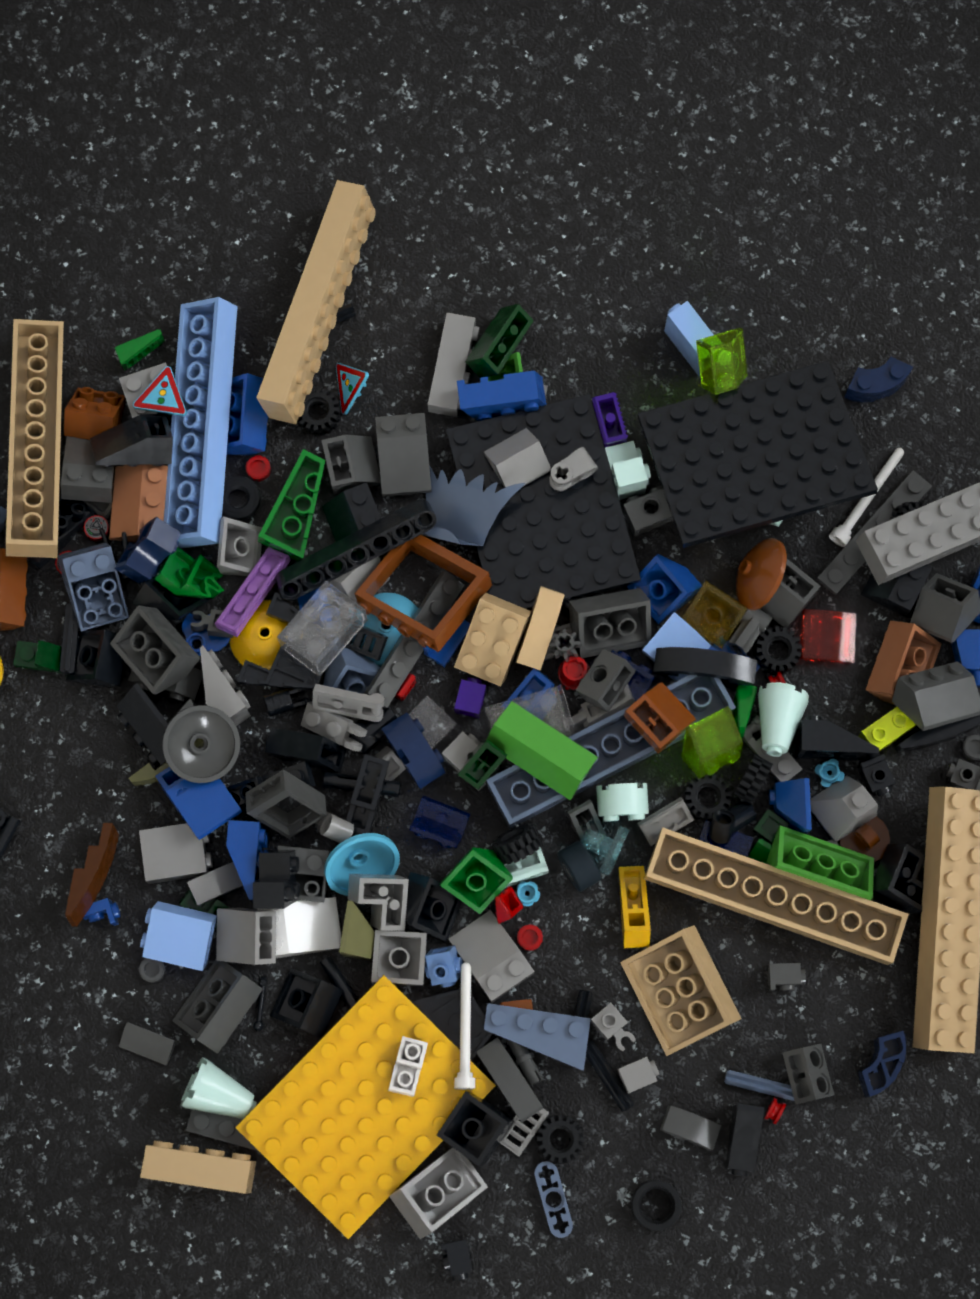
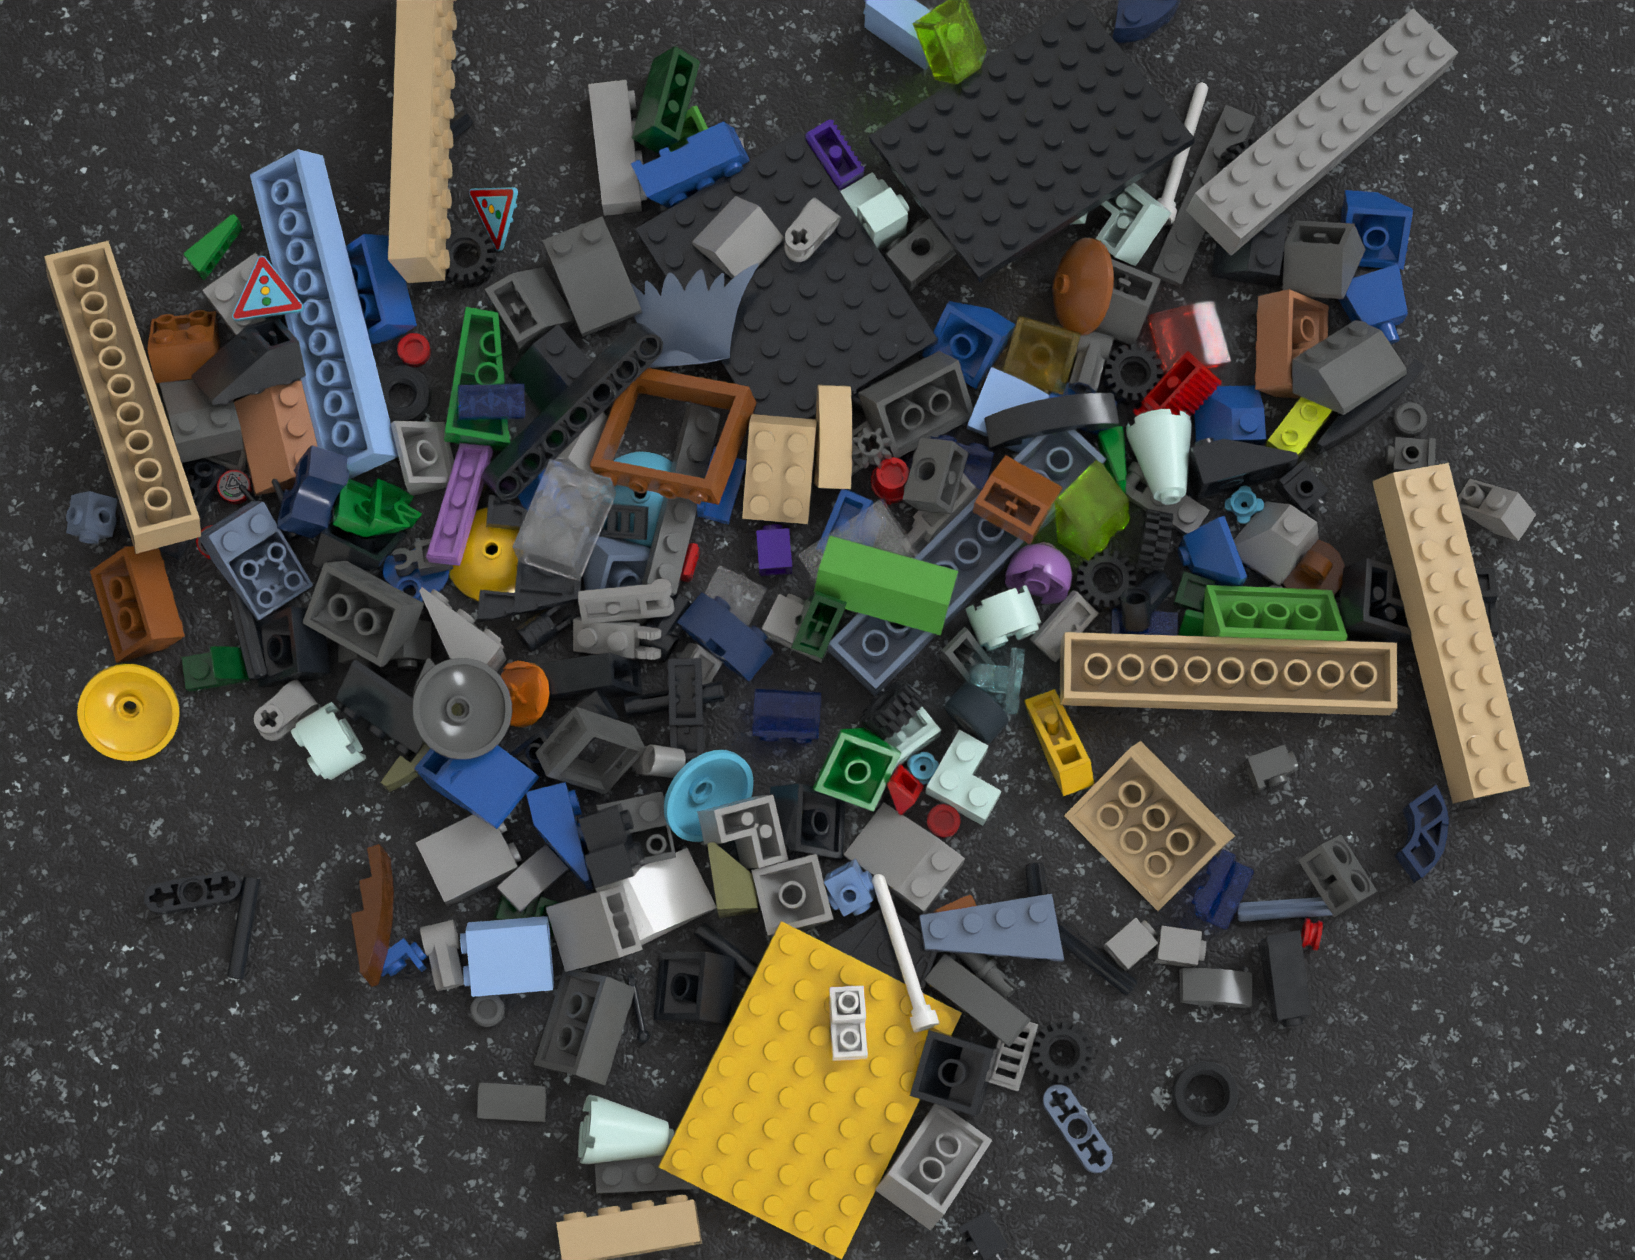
camera: 20 degrees left, 0 degrees up
(80, 703) = (286, 709): none -> light grey piece
(100, 736) = (329, 741): none -> light aqua brick
(133, 912) = (442, 947): none -> light grey piece
(255, 745) = (528, 692): none -> orange tile
(298, 524) = (491, 401): none -> clear blue tile
(548, 909) = (955, 780): none -> light aqua brick
(610, 1023) = (1077, 892): light grey brick -> none
(661, 774) = (1042, 570): none -> medium lavender cylinder
(673, 1088) = (1179, 947): none -> light grey brick
(719, 1057) = (1224, 890): none -> clear blue bracket
(811, 671) = (1183, 387): none -> red brick
(813, 538) = (1133, 223): none -> light aqua brick
(840, 702) = (1232, 415): none -> blue slope

